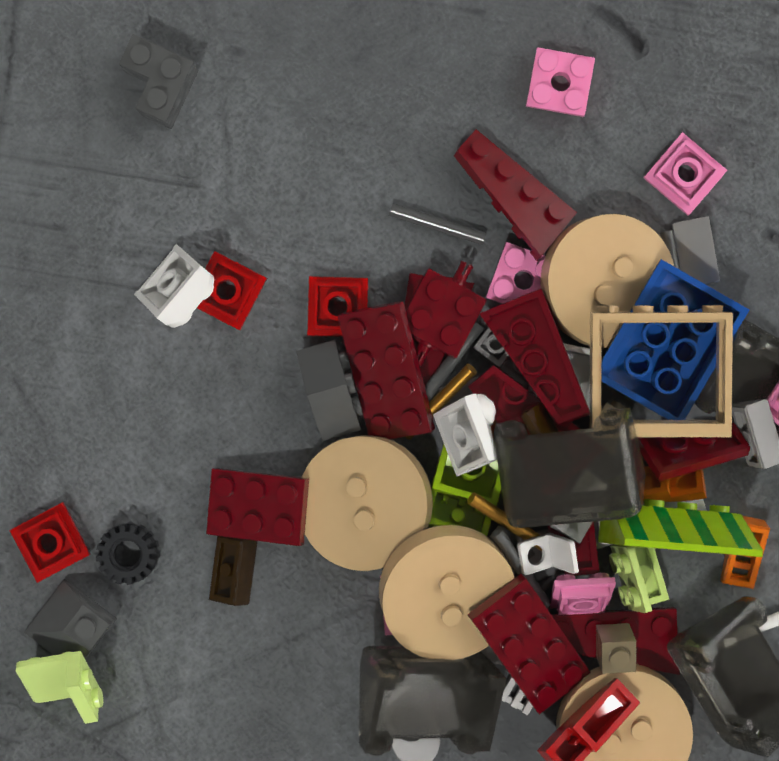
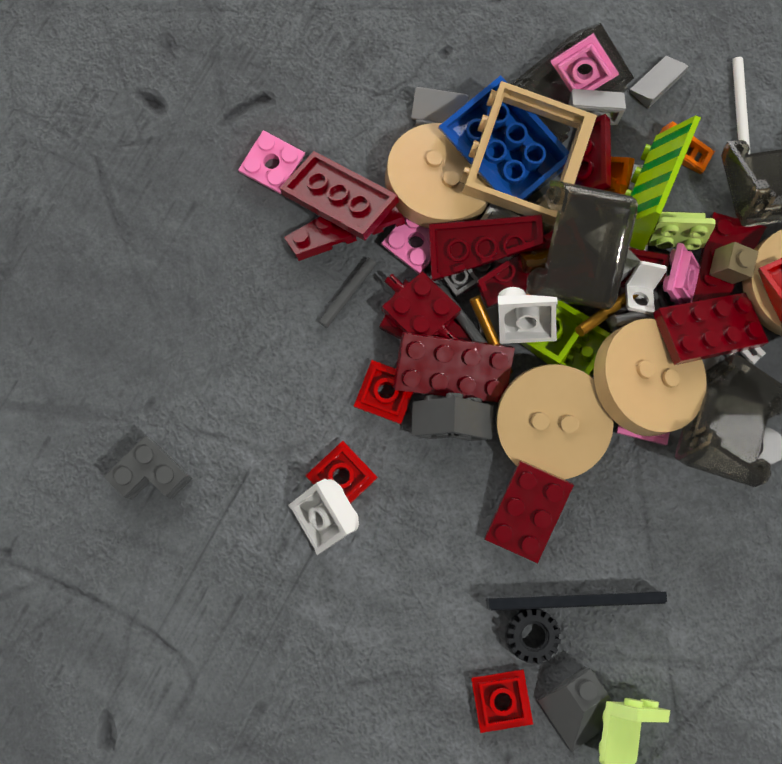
camera: 65 degrees left, 10 degrees down
(180, 588) = (583, 600): none -> black tile
(233, 571) = (574, 553): dark brown slope -> none
(542, 174) = (339, 195): none -> plate
(667, 181) = (376, 109): bright pink piece -> none

